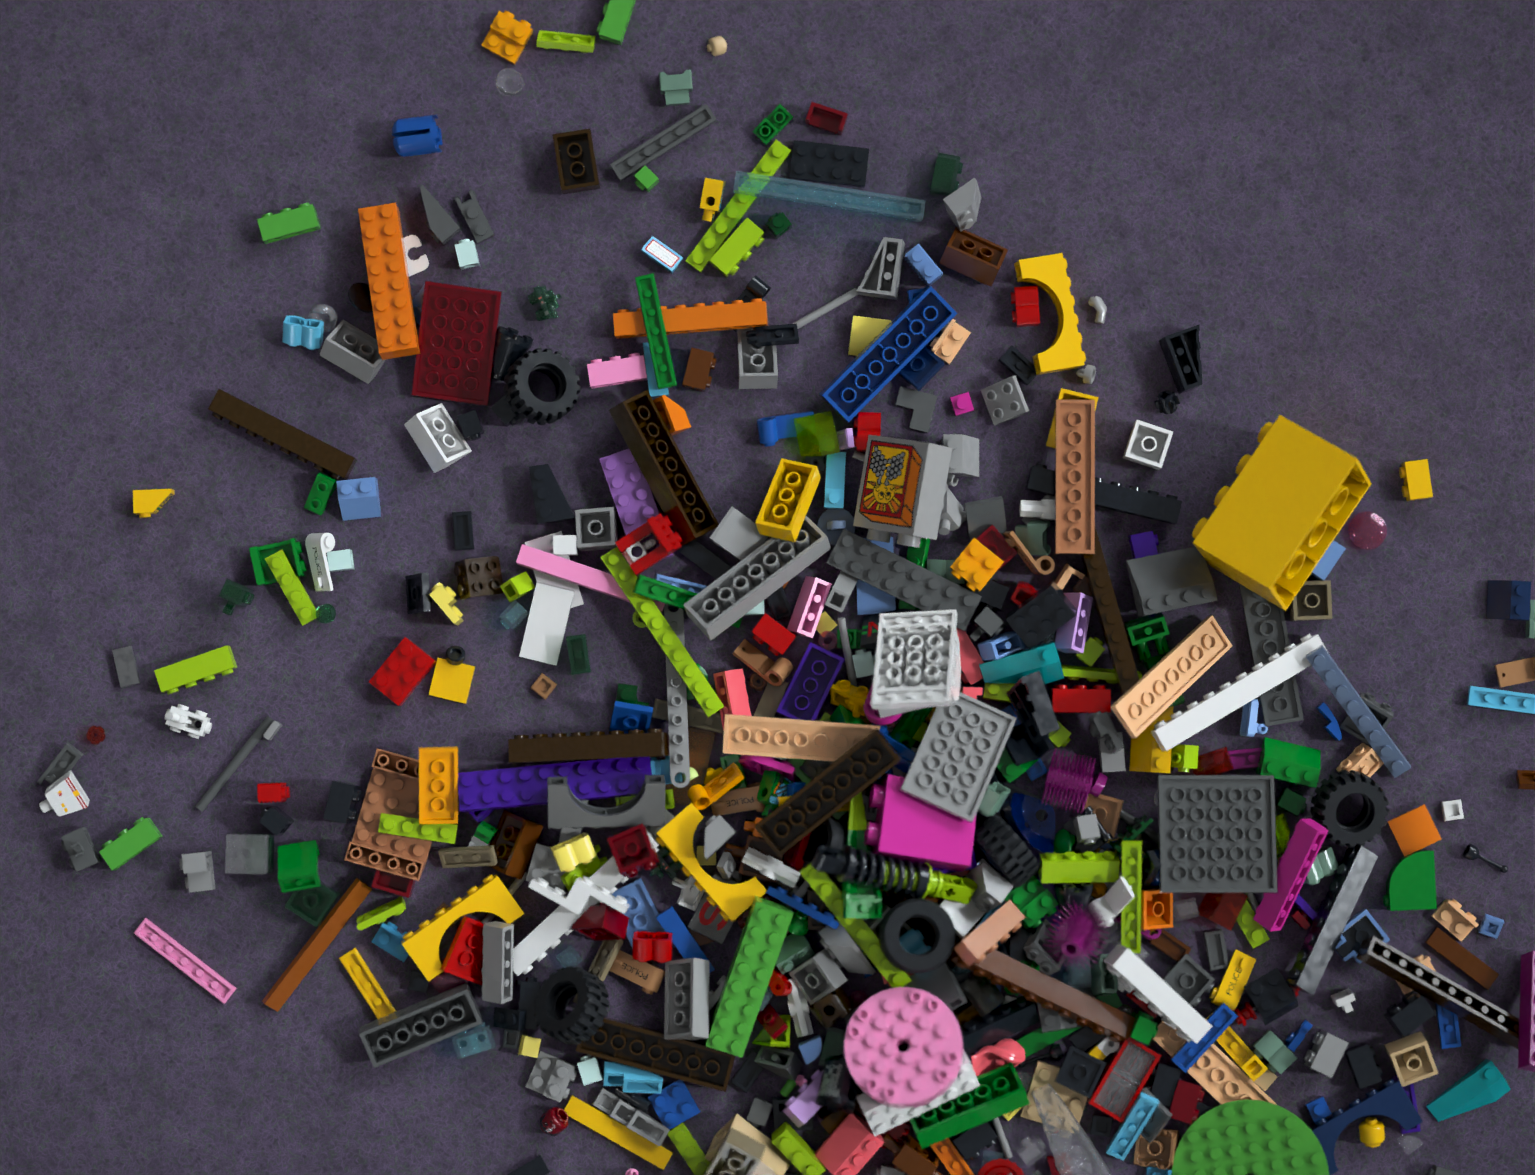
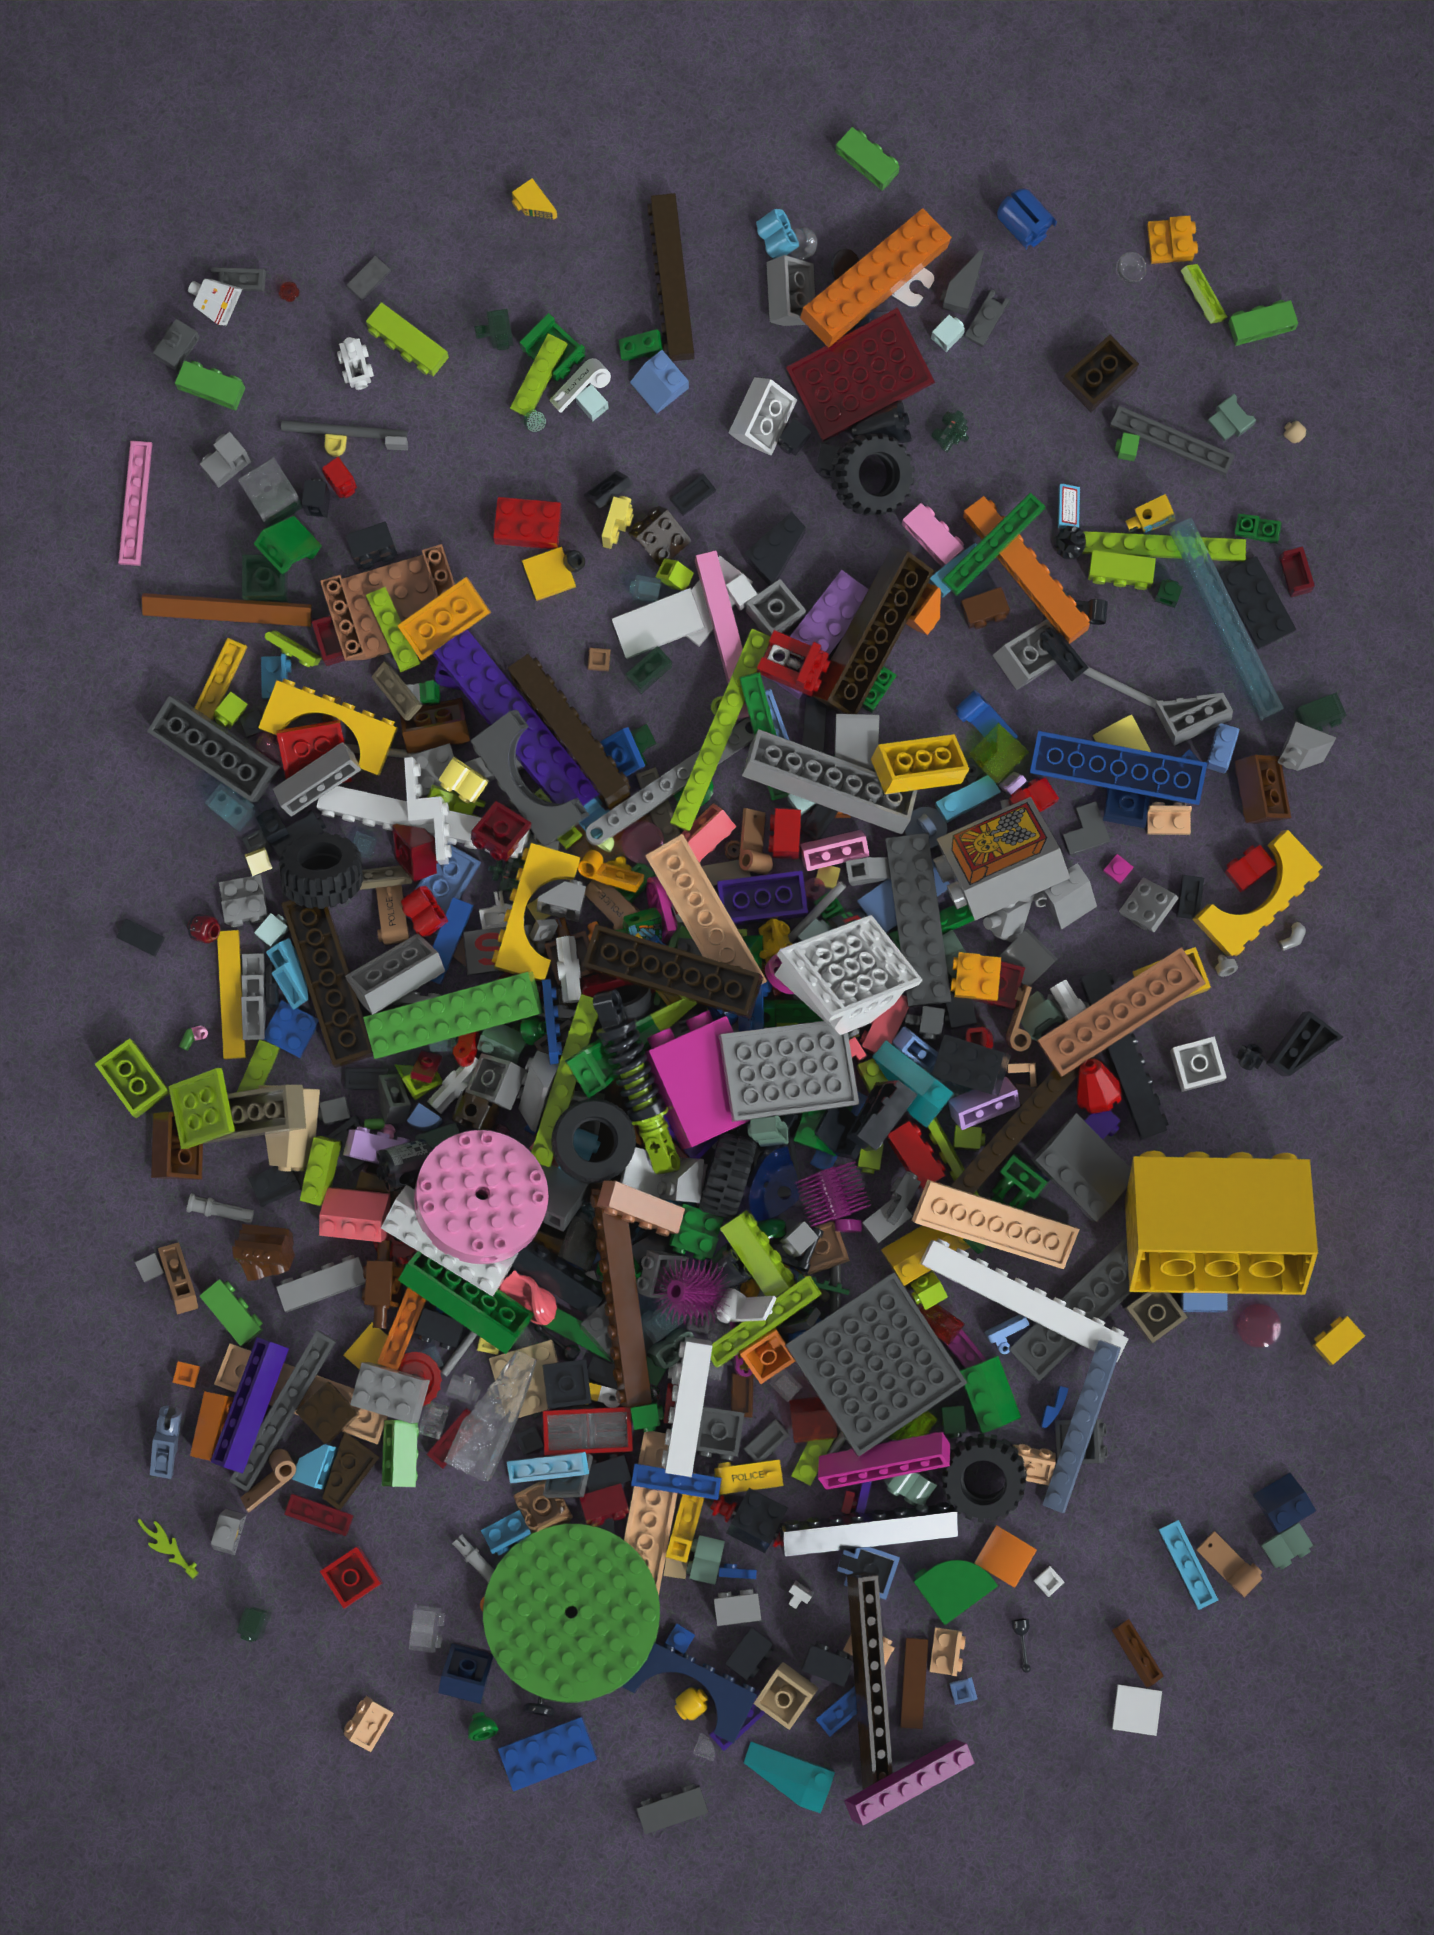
camera: 55 degrees right, 5 degrees down
(241, 777) = (335, 444): none -> light yellow tile
(398, 993) = (229, 710): none -> lime brick
(691, 264) = (1070, 551): none -> black gear
(707, 489) = (879, 689): none -> green slope
(707, 746) = (640, 840): none -> clear pink dish
(1118, 532) = (1097, 1087): none -> red cone

